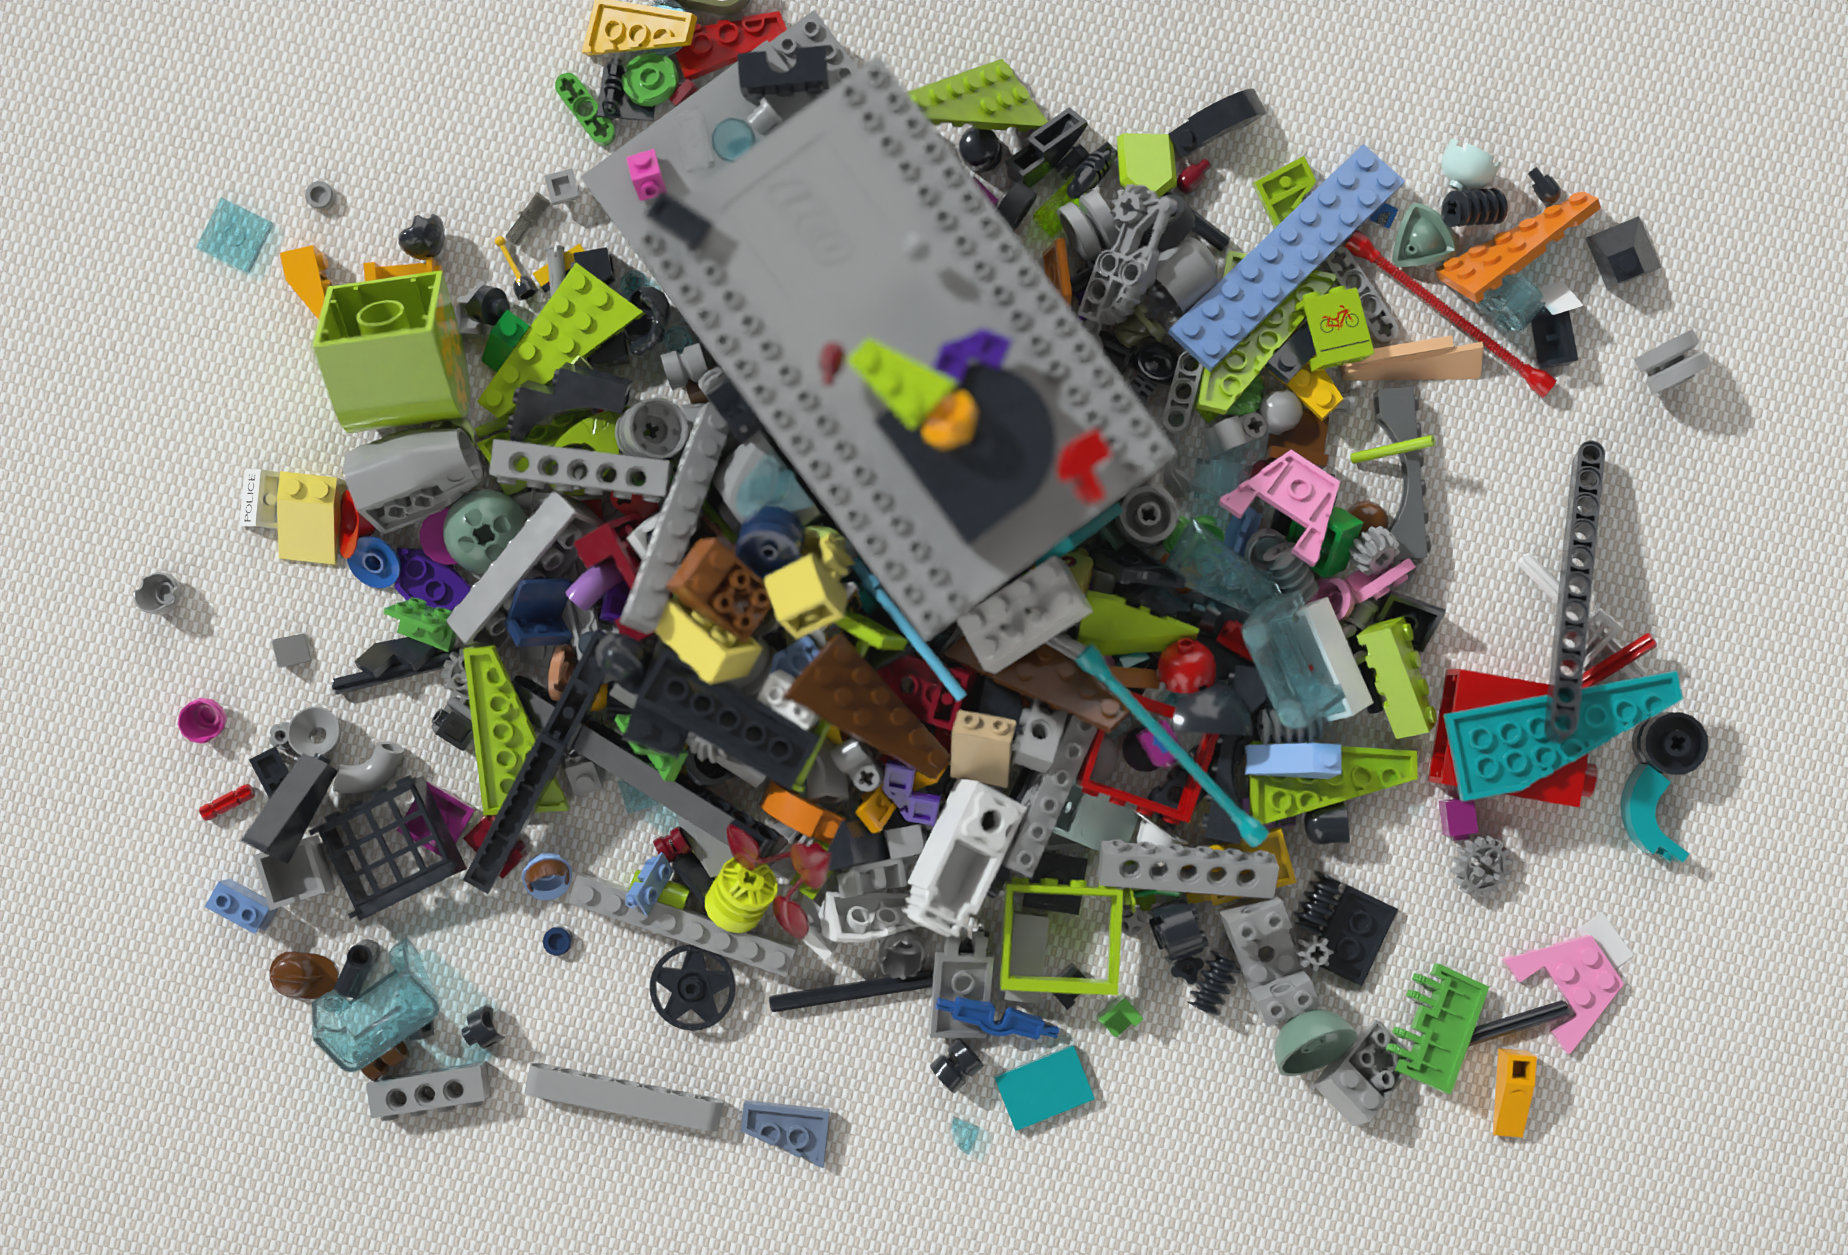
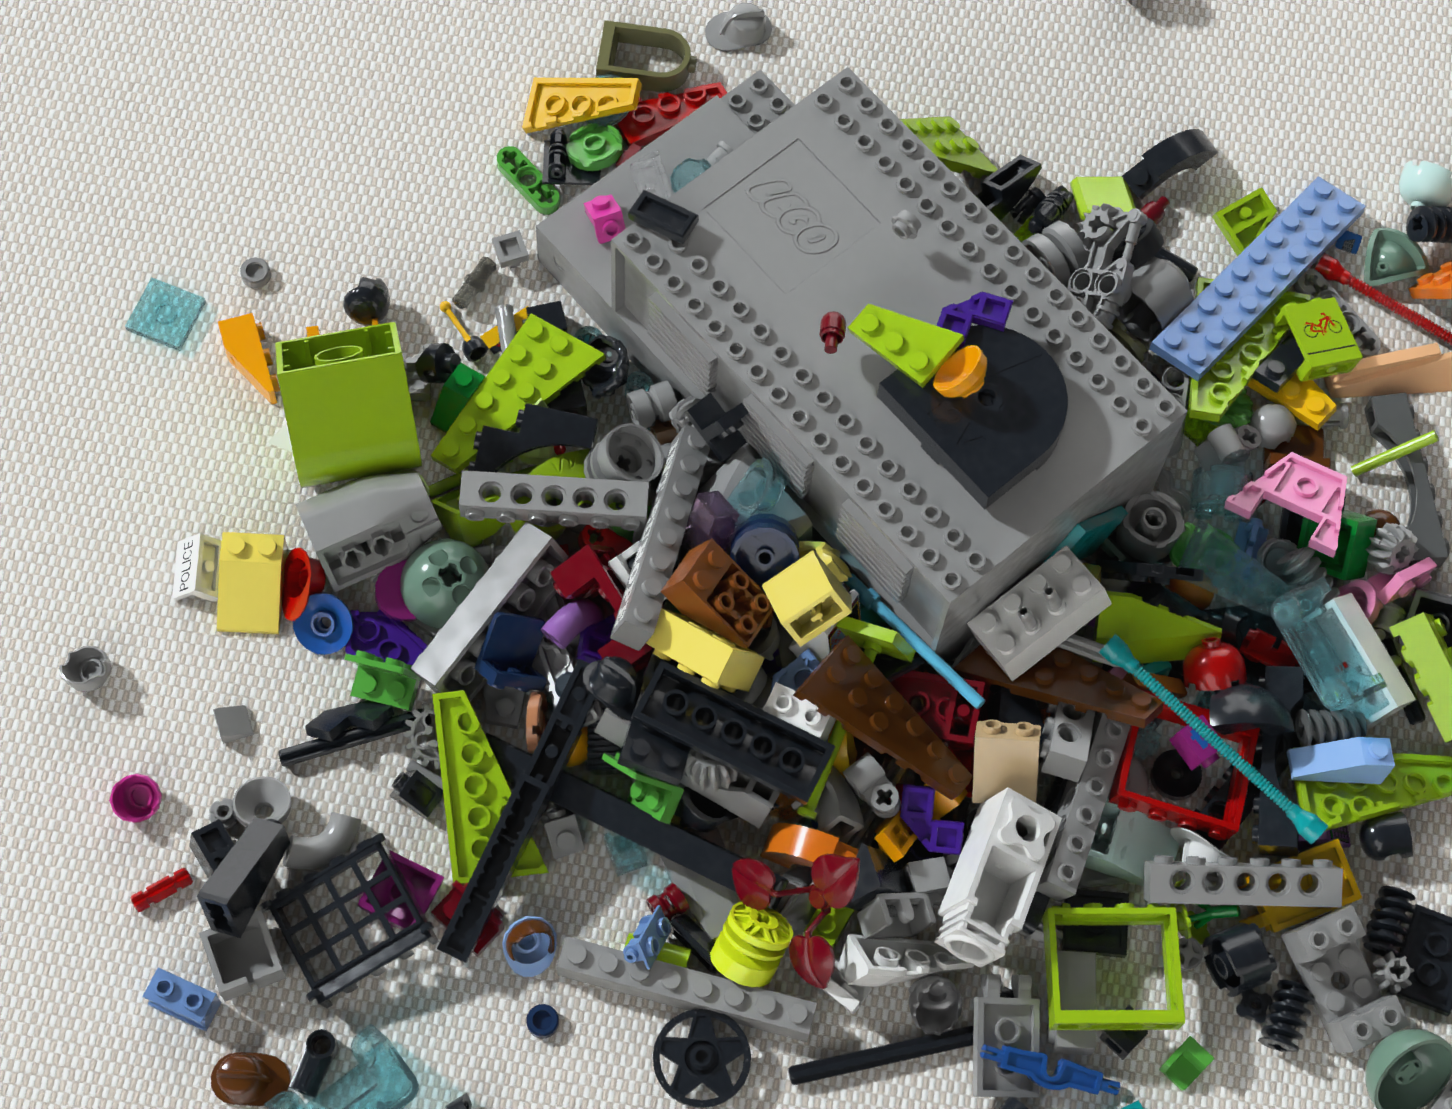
camera: 15 degrees left, 20 degrees down
(721, 514) = (710, 518): none -> clear purple brick
(807, 74) = (714, 124): black arch -> none
(1077, 462) = (1094, 413): red brick -> none

